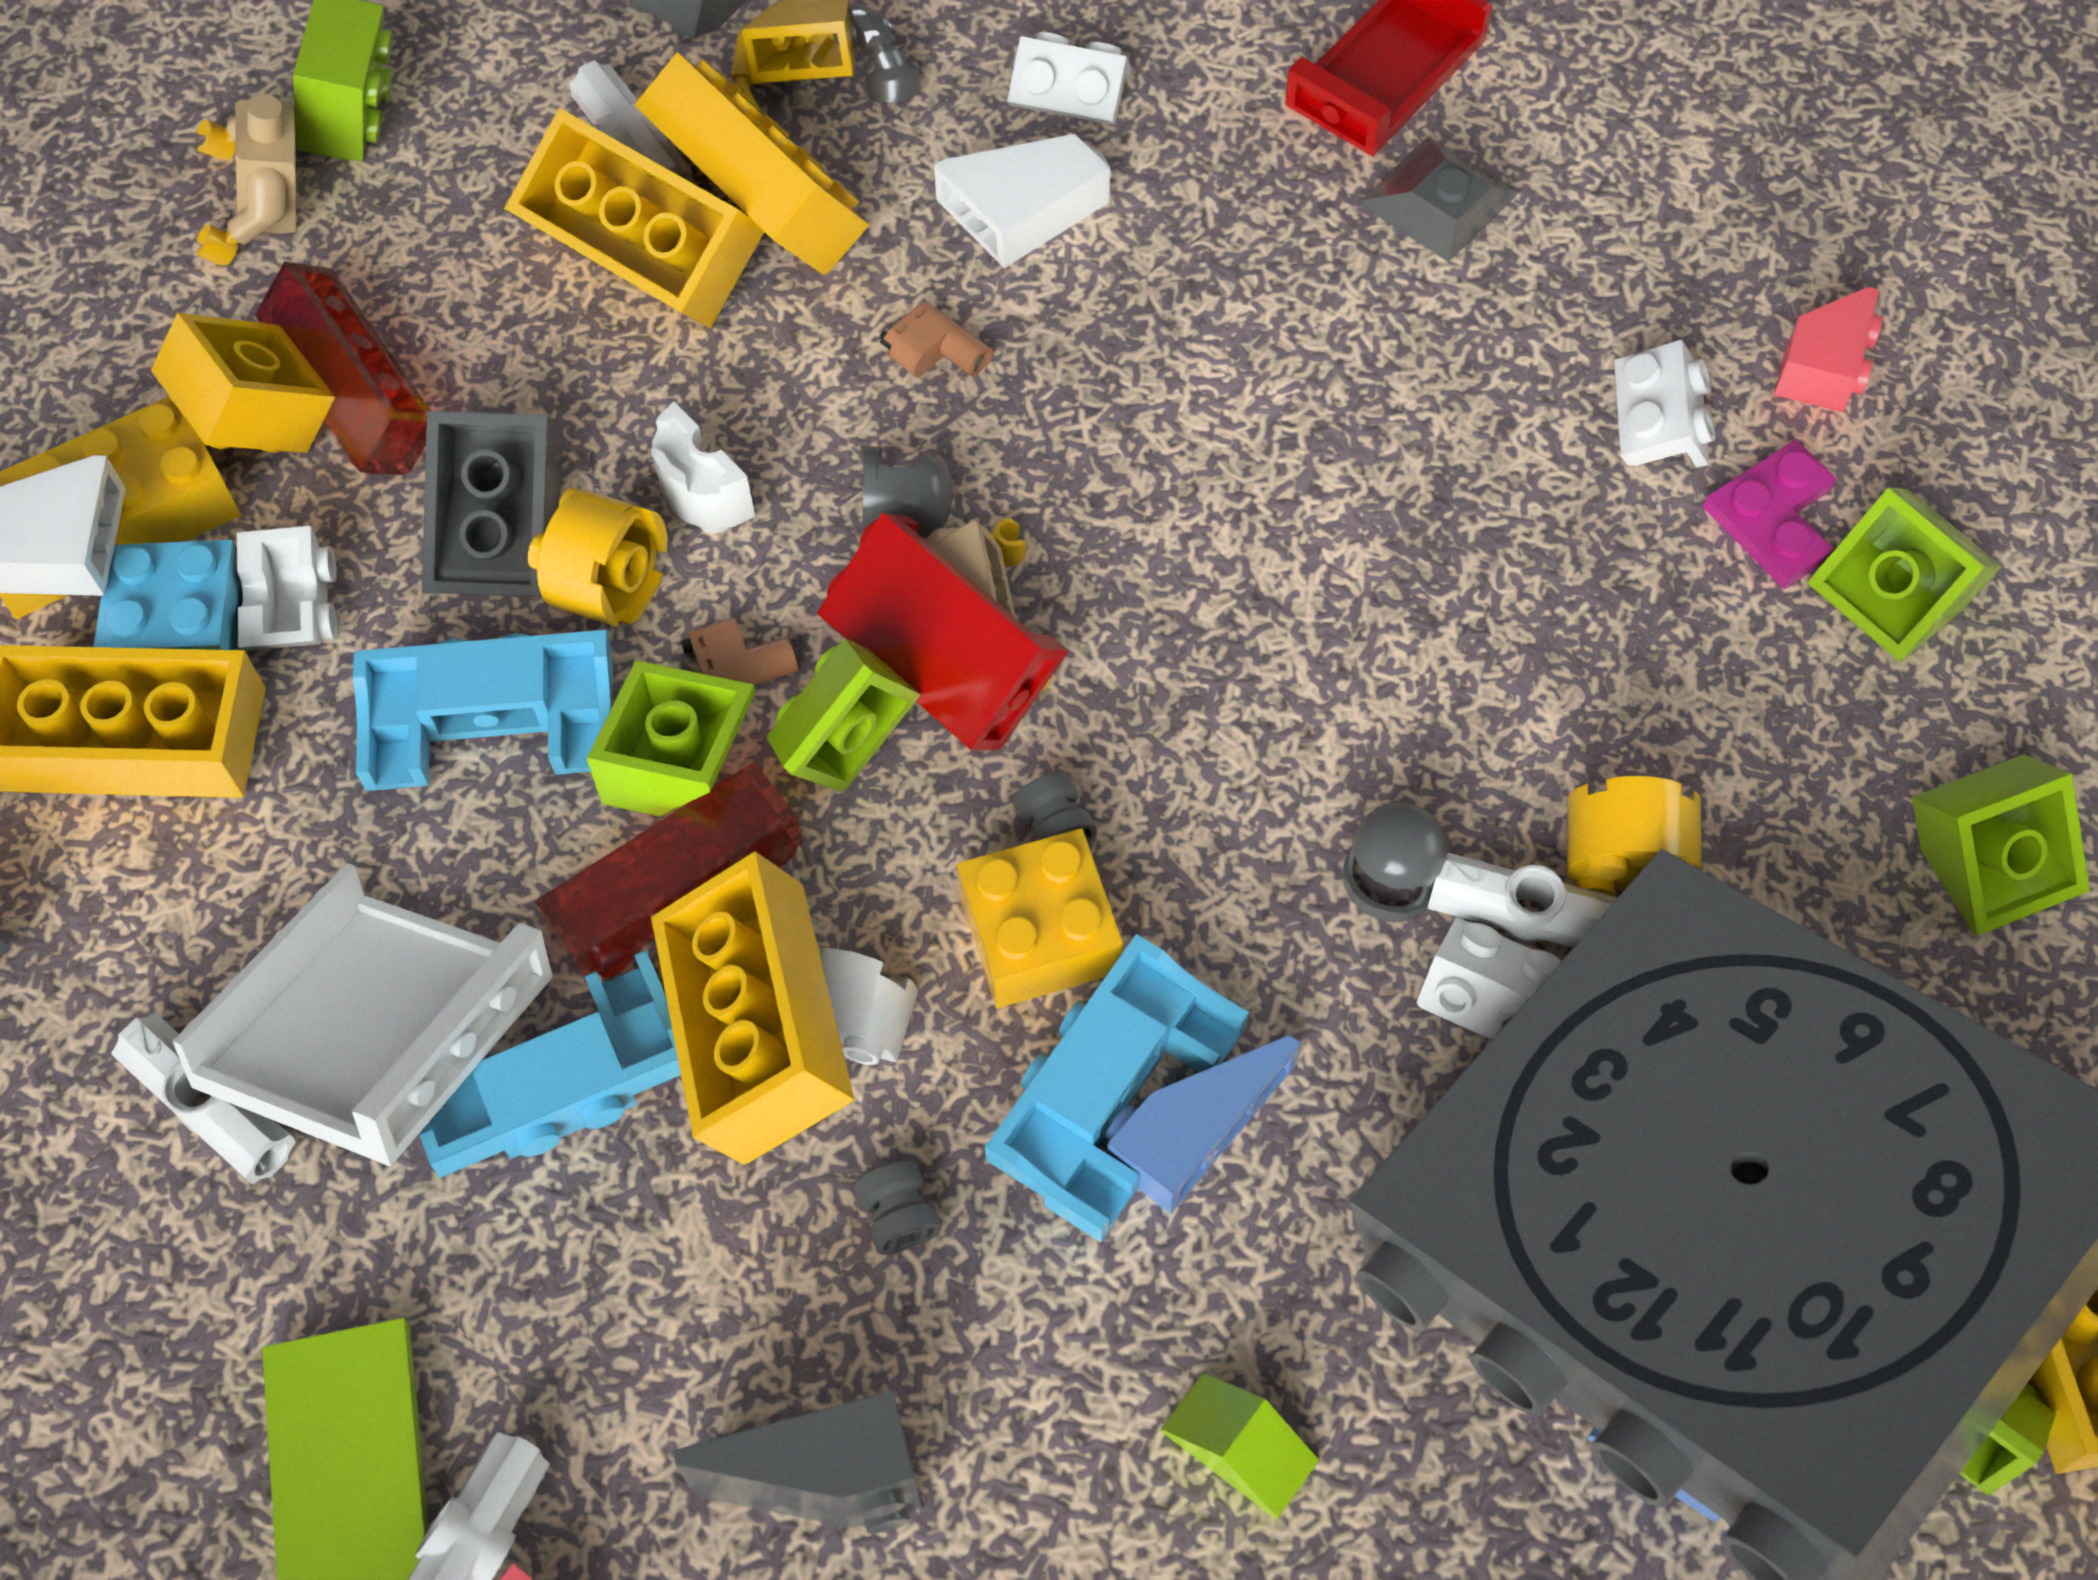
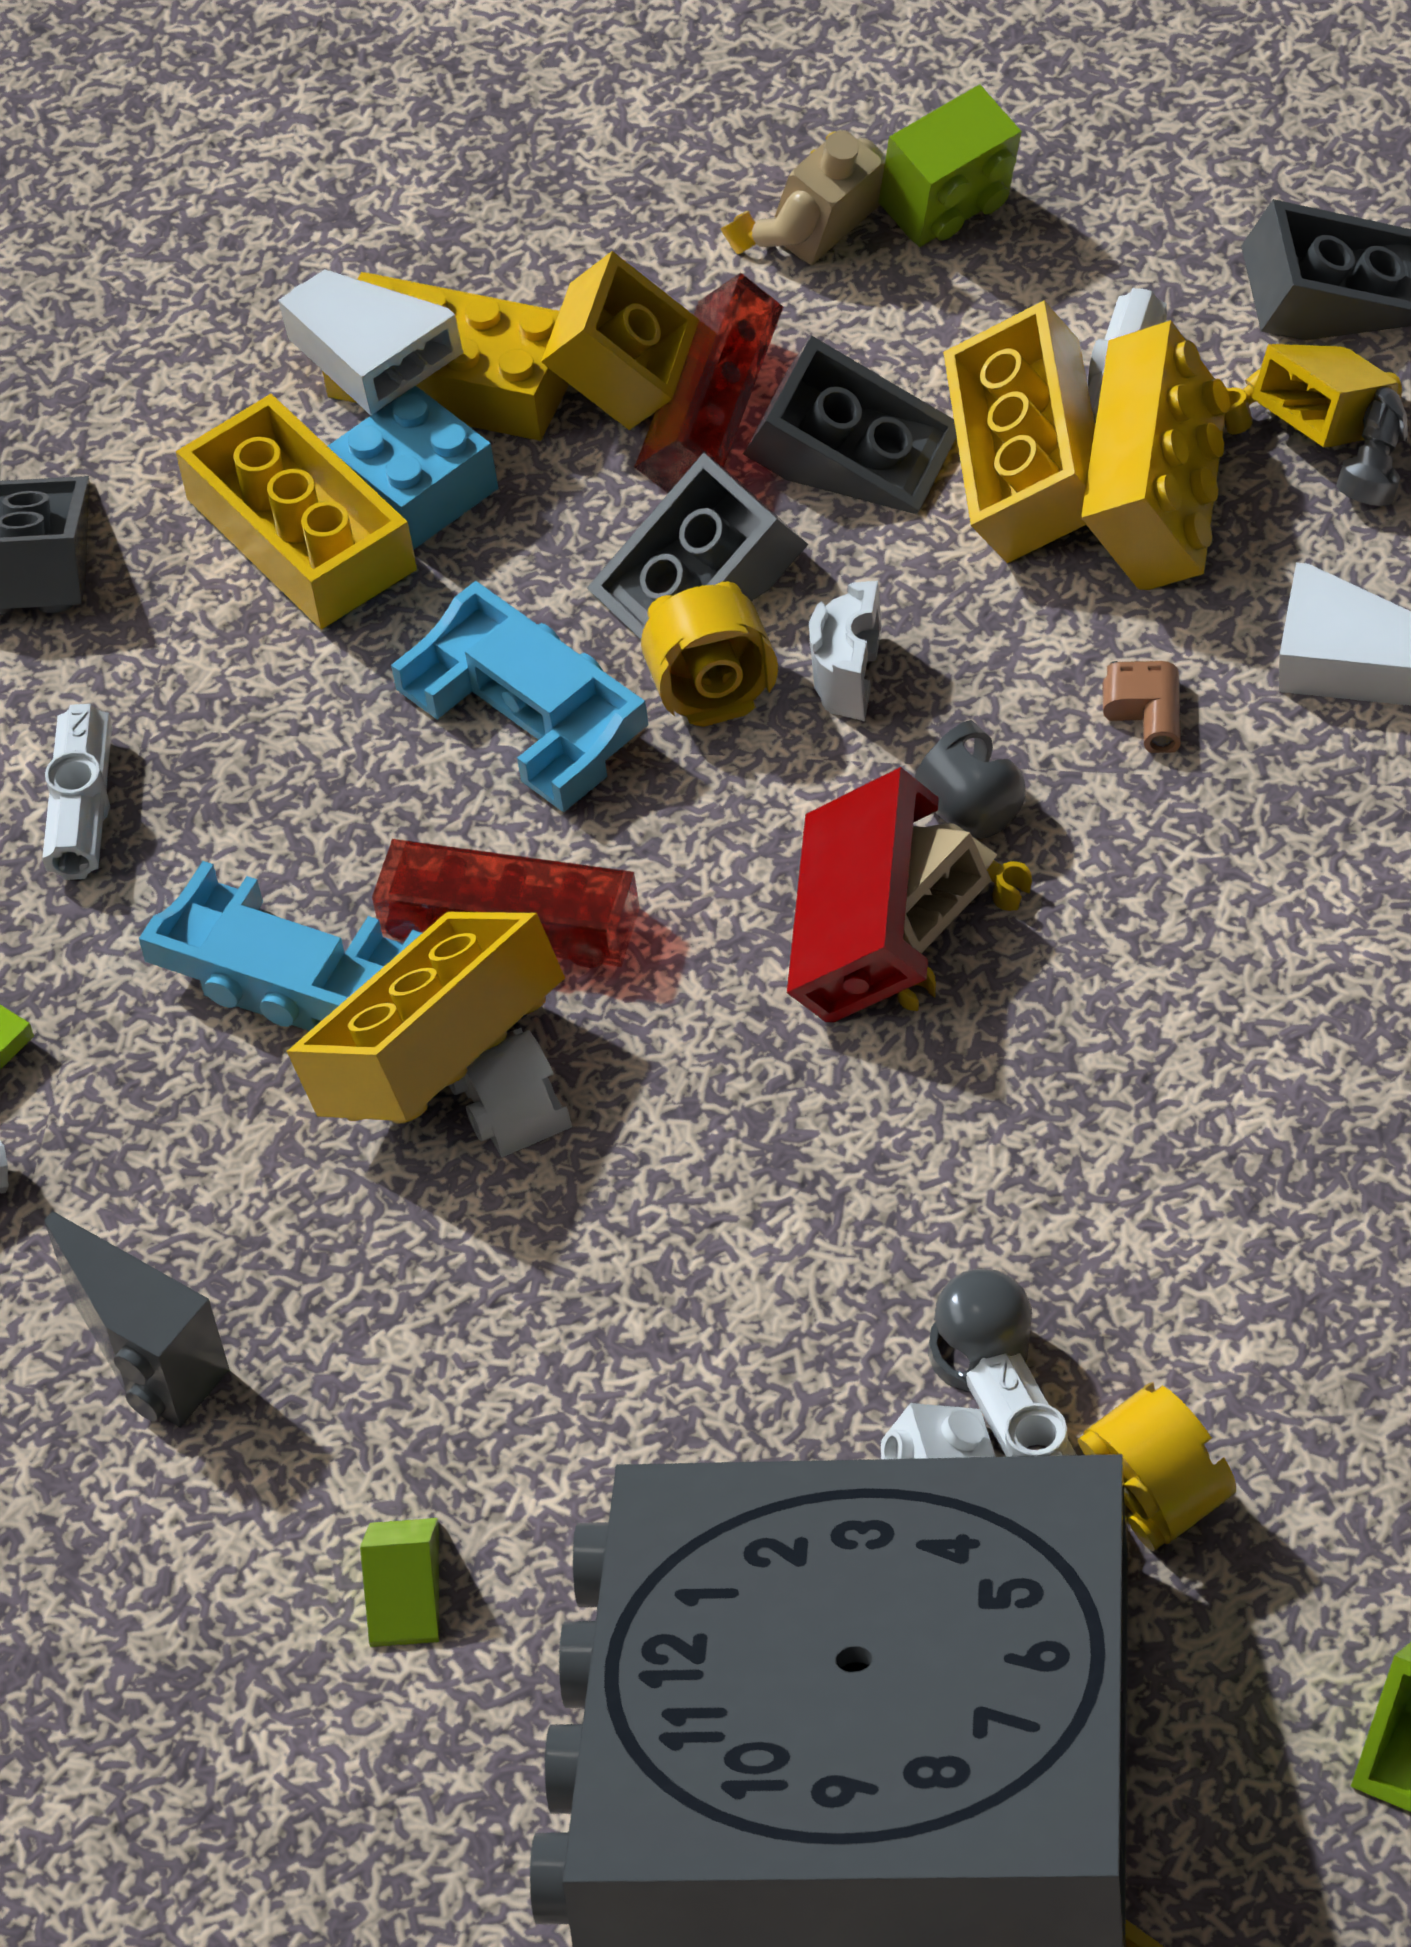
camera: 55 degrees right, 10 degrees down
(284, 589) = (496, 511): white cylinder -> none
(361, 1019) = (208, 812): white panel -> none
(487, 322) = (851, 432): none -> dark grey slope
(666, 737) = (595, 800): lime slope -> none
(723, 654) = (719, 804): nougat piece -> none
(840, 716) = (724, 894): lime slope -> none
(897, 1209) = (377, 1237): dark grey wheel -> none
(1039, 917) = (692, 1142): yellow brick -> none
(1051, 807) = (795, 1086): dark grey wheel -> none
(1096, 1071) = (597, 1272): medium azure bracket -> none
(1194, 1120) = (620, 1362): medium blue slope -> none

